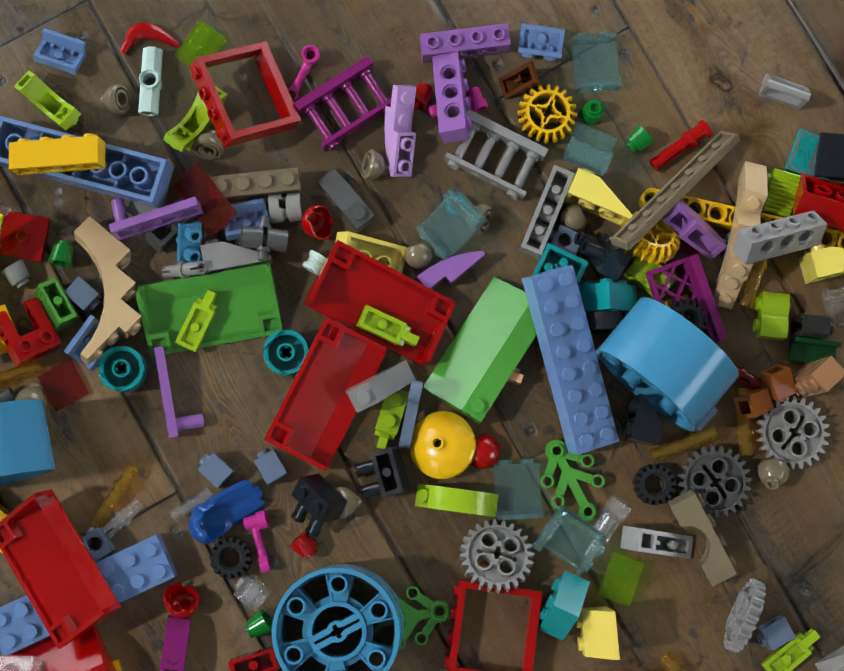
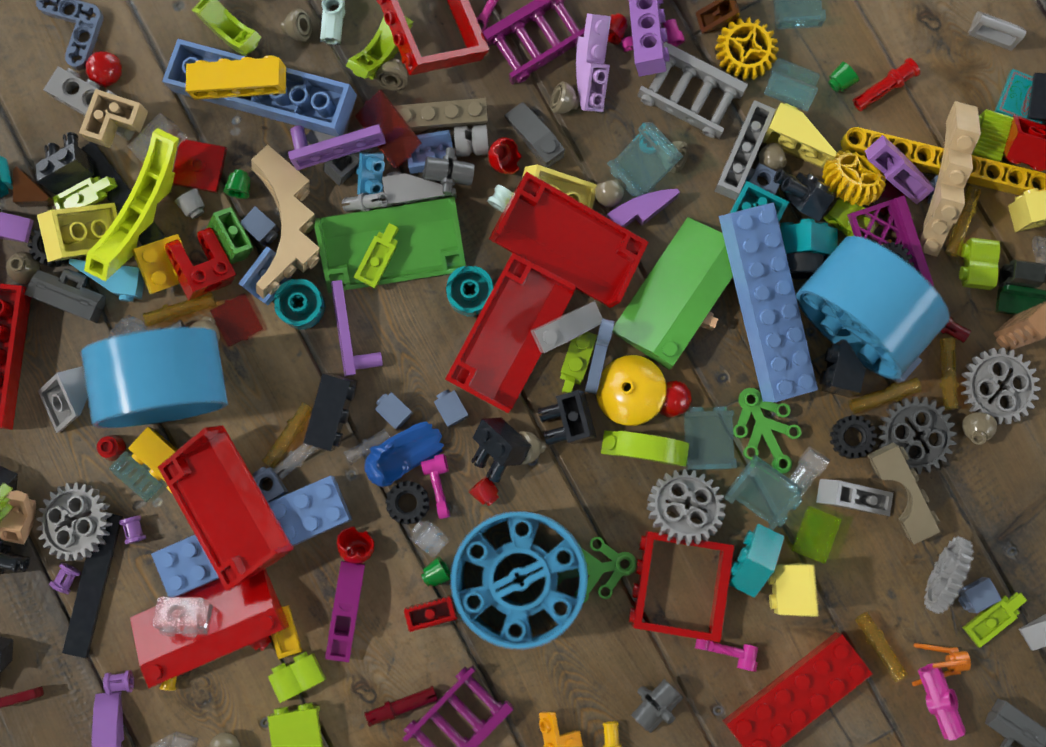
camera: 10 degrees right, 0 degrees up
(154, 472) = (330, 411): none -> black wedge
(386, 327) = (575, 265): lime hinge -> none
(592, 112) = (793, 48): green hat -> none
(675, 190) = (880, 128): dark tan tile -> none
(753, 403) = (960, 353): dark orange brick -> none
(779, 237) = (992, 178): light grey brick -> none
(779, 382) = (987, 332): dark orange brick -> none

